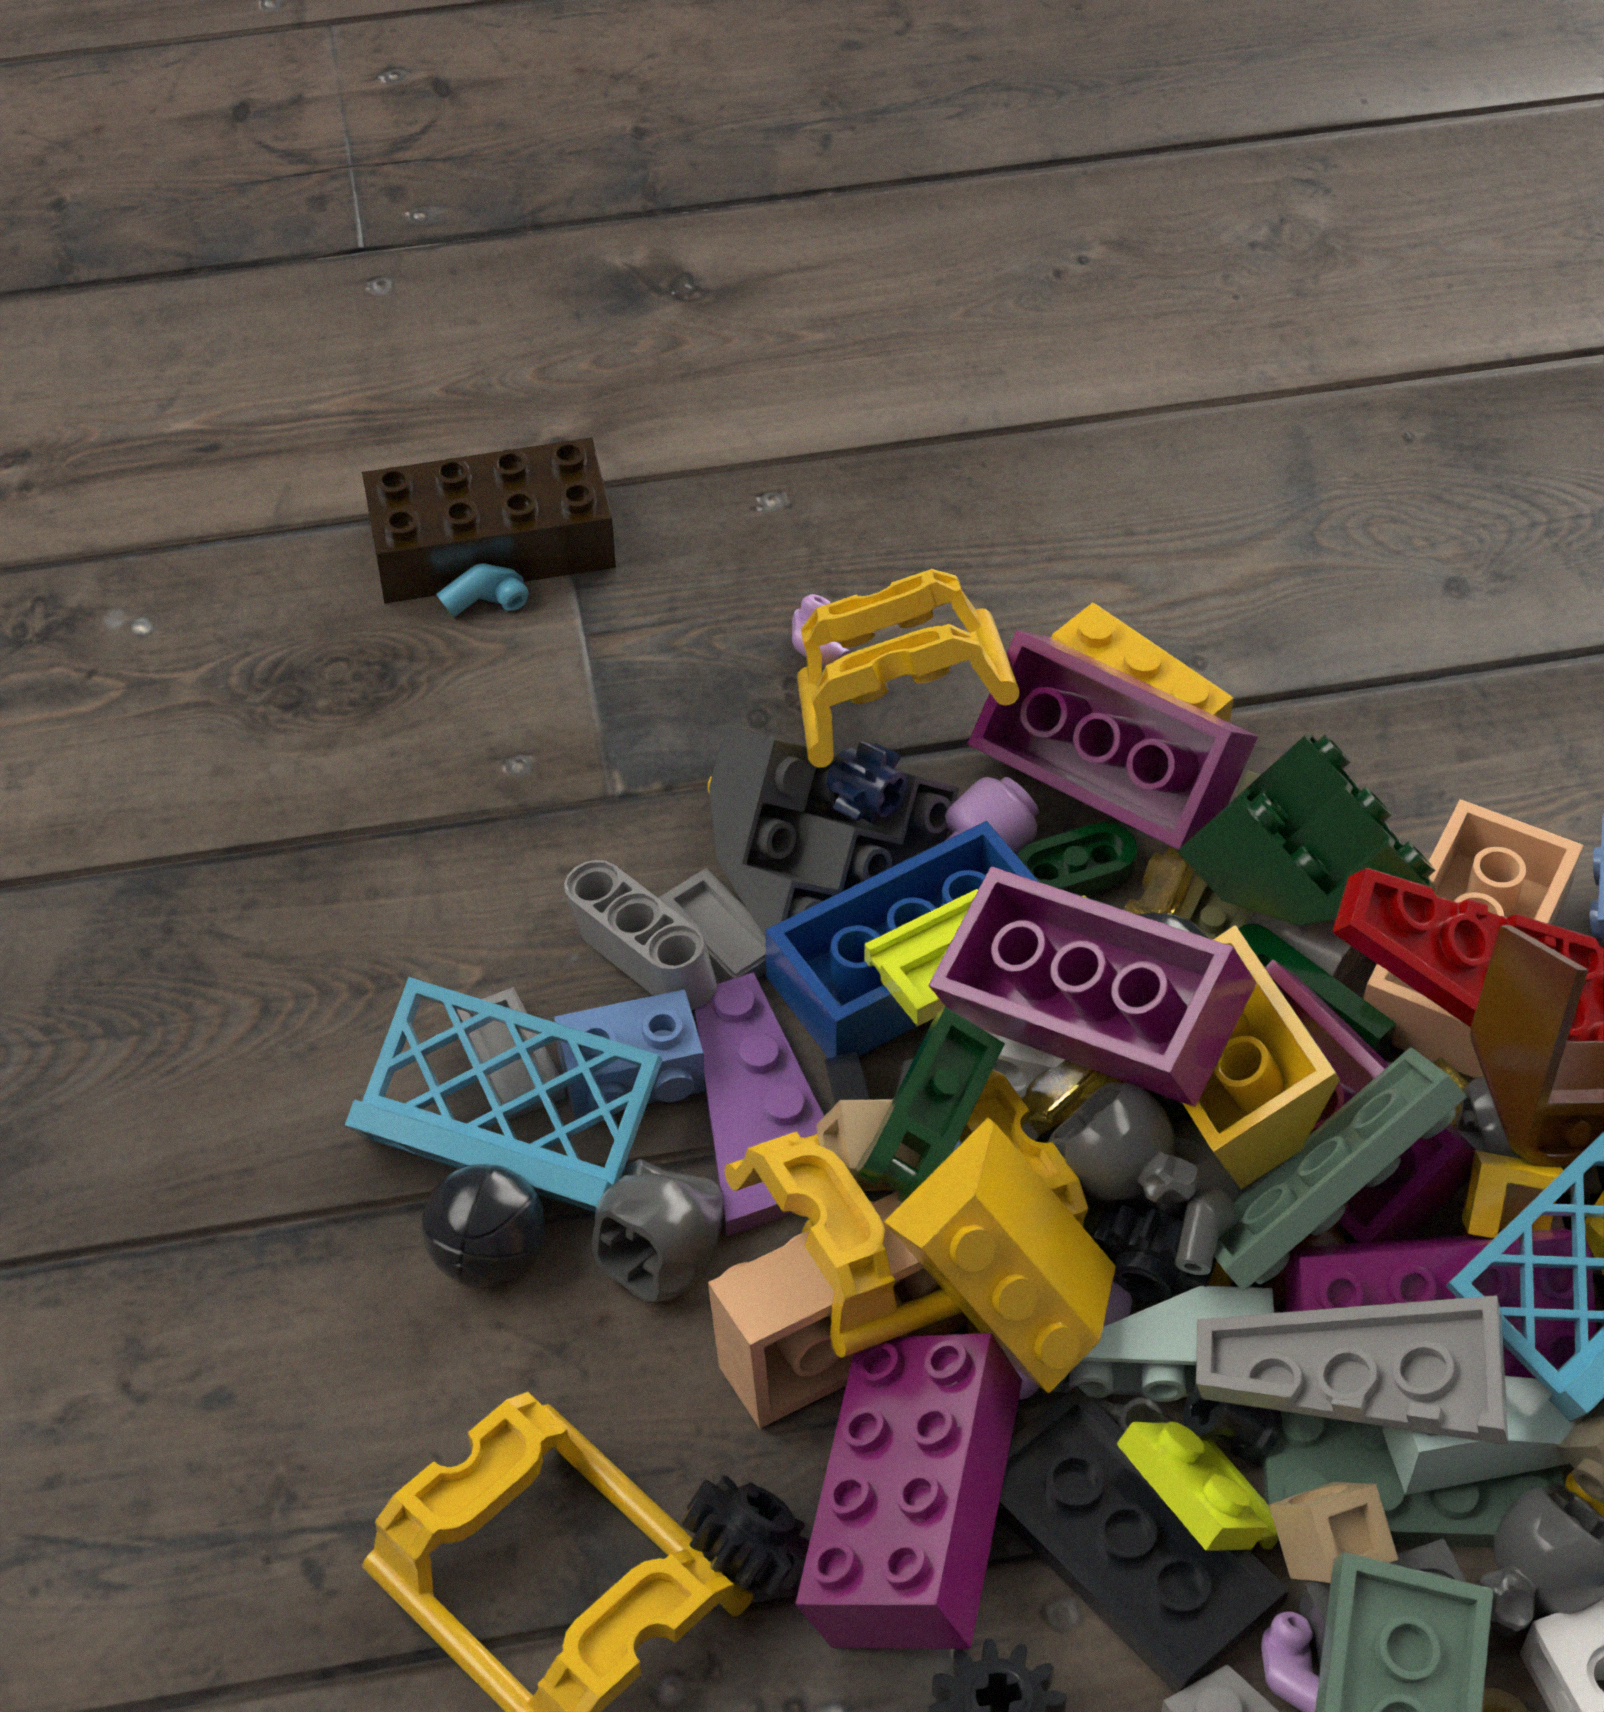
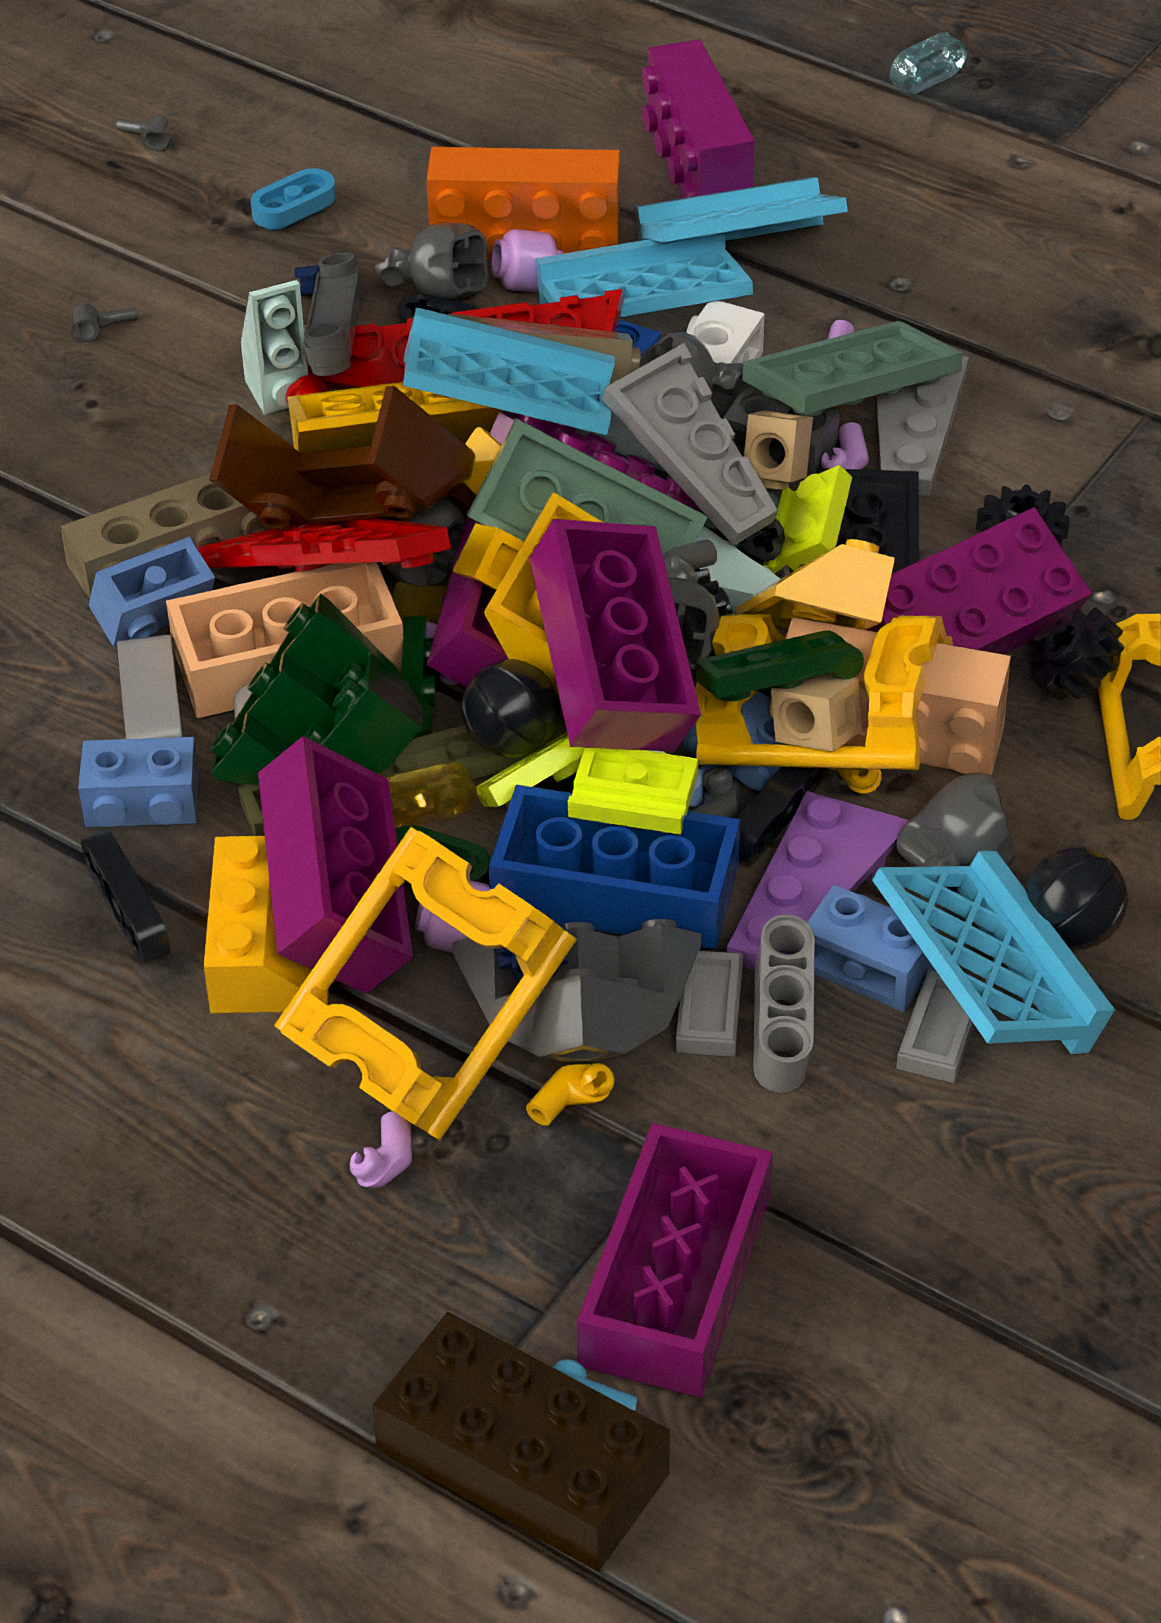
camera: 135 degrees left, 5 degrees down
(507, 685) = (675, 1260): none -> magenta brick
(1282, 645) = (125, 896): none -> black beam
(1347, 1044) = (487, 555): none -> yellow panel
(1395, 734) = (139, 782): none -> medium blue brick
(1457, 776) = (149, 688): none -> light grey beam

